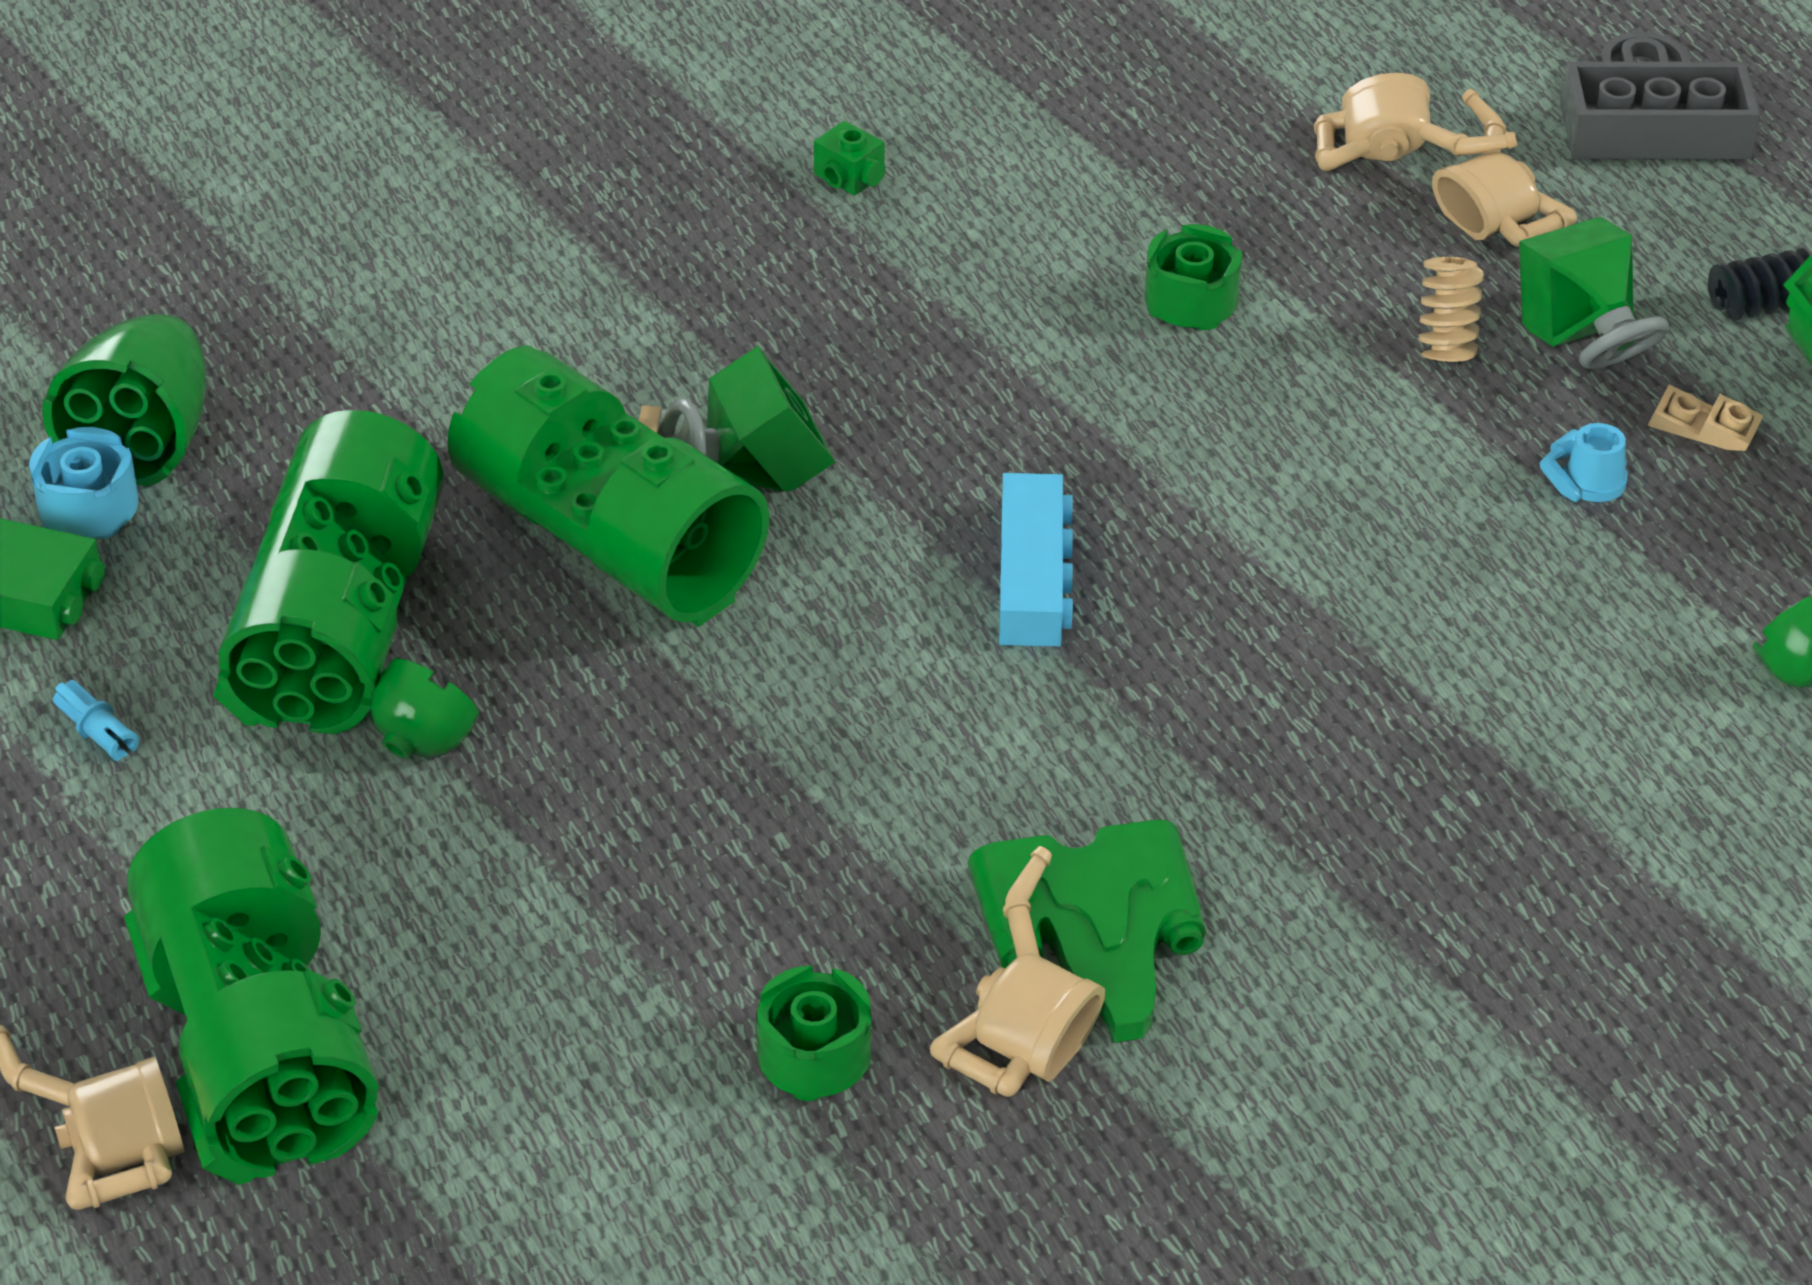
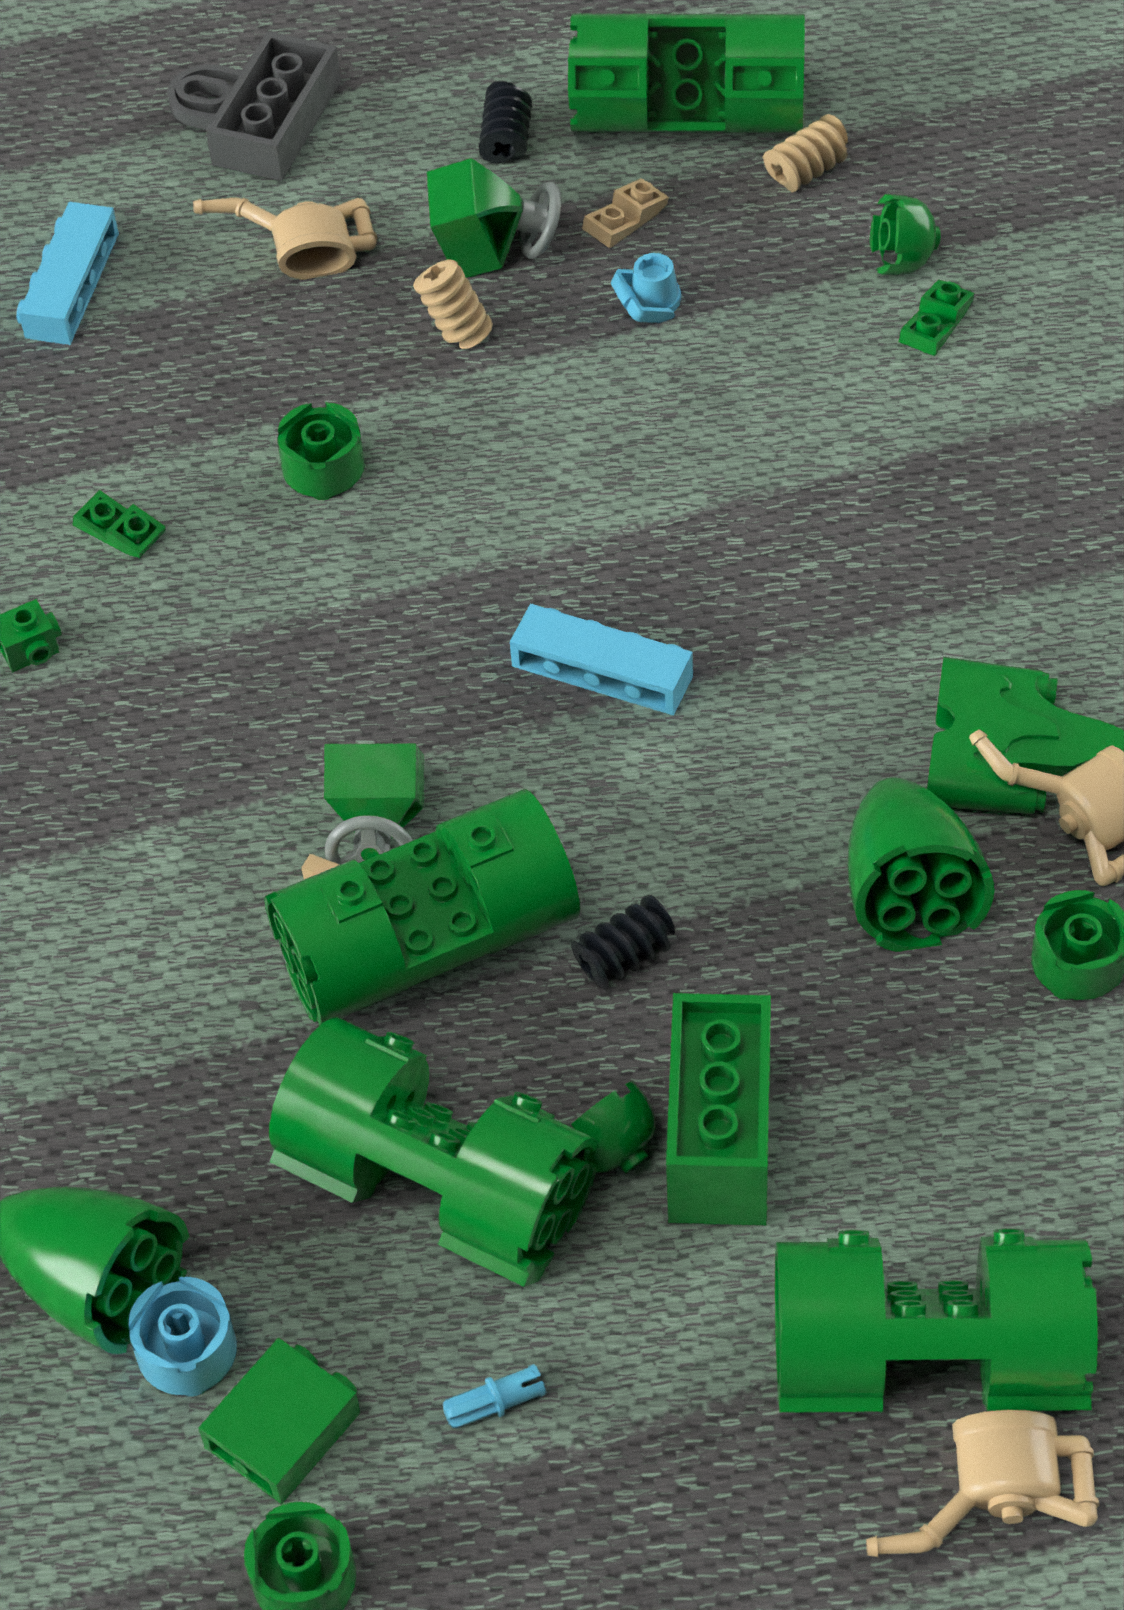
camera: 65 degrees left, 10 degrees up
(455, 767) = (718, 1109): none -> green brick
(659, 667) = (623, 940): none -> black piece
(856, 853) = (914, 845): none -> green cylinder
(1029, 181) = (122, 528): none -> green slope
(1332, 48) = (68, 273): none -> medium azure brick
(1391, 119) = (194, 268): tan piece -> none
(1733, 717) = (937, 317): none -> green slope

